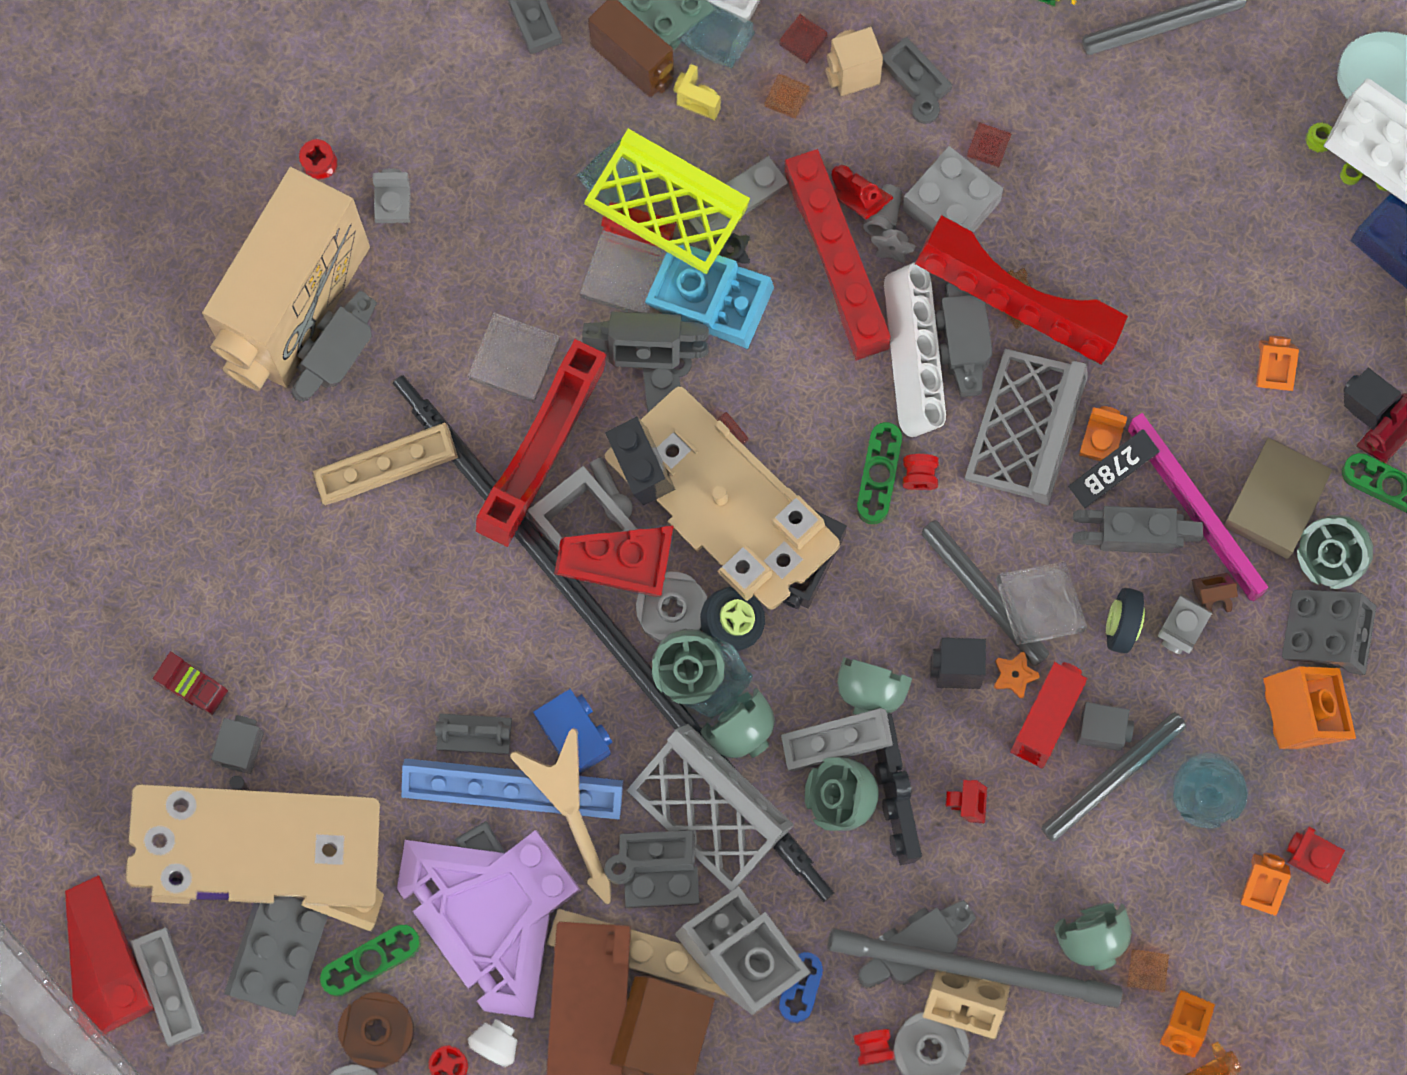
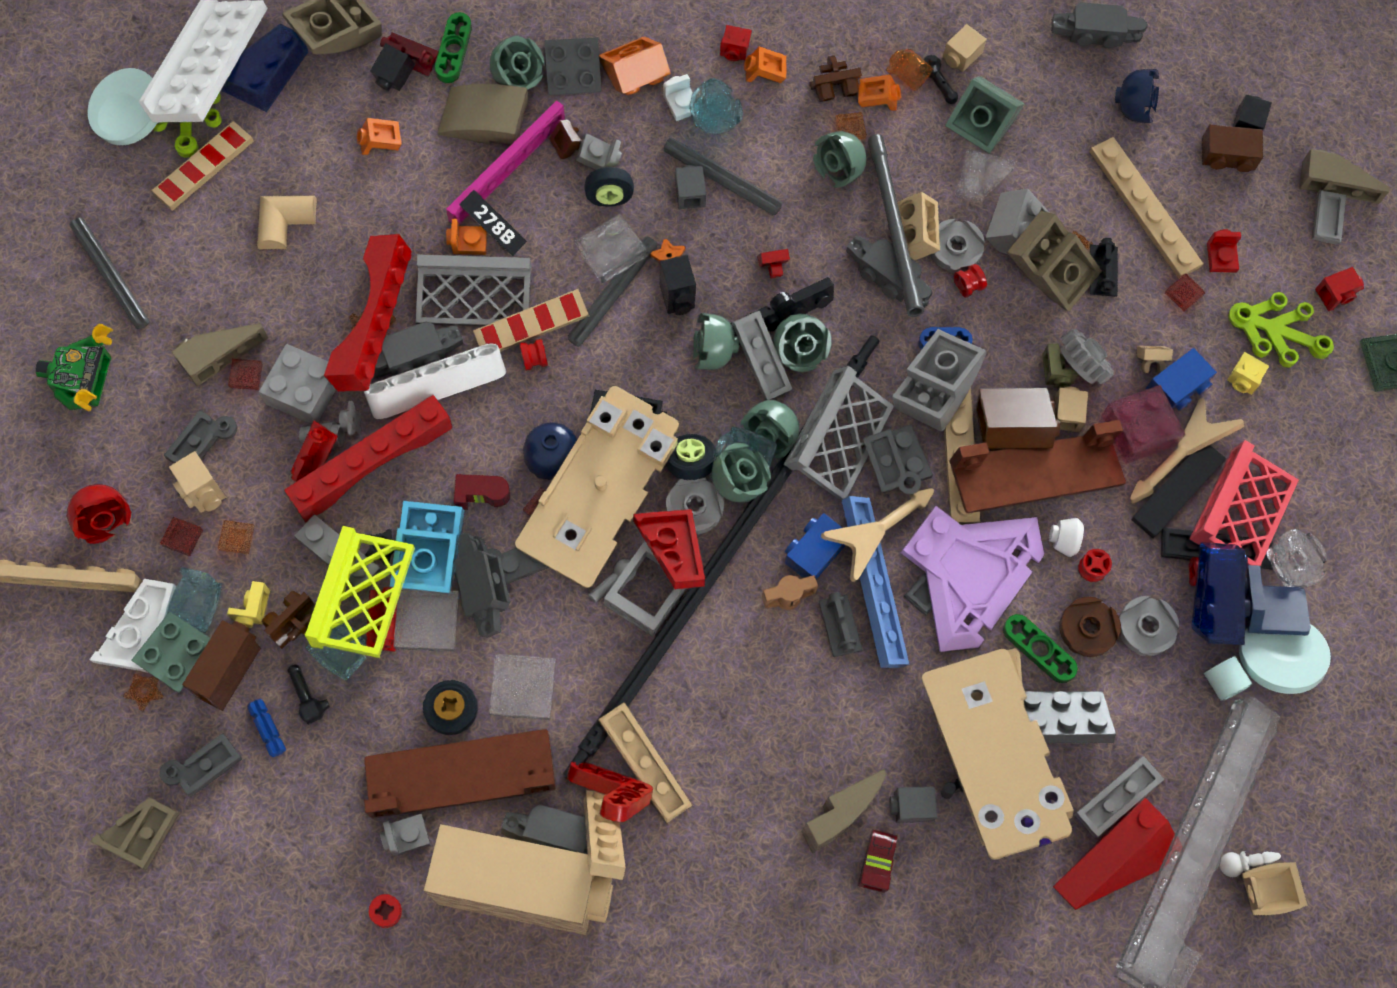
camera: 115 degrees left, 5 degrees down
(252, 653) = (841, 811): none -> dark tan slope
(298, 371) = (603, 840): none -> tan plate
(385, 400) = (622, 793): none -> red beam
(439, 269) = (458, 773): none -> copper bracket
(519, 288) = (456, 716): none -> black wheel
(527, 680) = (789, 590): none -> medium nougat piece
(550, 429) = (548, 630): red arch -> none
(556, 84) = (266, 728): none -> blue axle
(561, 130) = (309, 708): none -> black piece
(640, 461) = (590, 548): black brick -> none
(663, 130) = (291, 621): none -> reddish brown hips
(760, 378) = (481, 489): none -> dark red leg
(793, 458) = (547, 448): none -> dark blue cylinder
(891, 465) = (533, 377): green beam -> none
(962, 481) = (533, 321): none -> tile
(1021, 105) = (213, 351): none -> dark tan slope
(1049, 714) = (696, 217): red window -> none
(1137, 529) = (536, 196): dark grey hinge -> none
(1197, 222) = (278, 213): none -> tan brick
(1220, 984) = (824, 83): none -> reddish brown hips
(1248, 753) = (678, 95): none -> white bracket
(1288, 151) = (202, 165): none -> tan tile

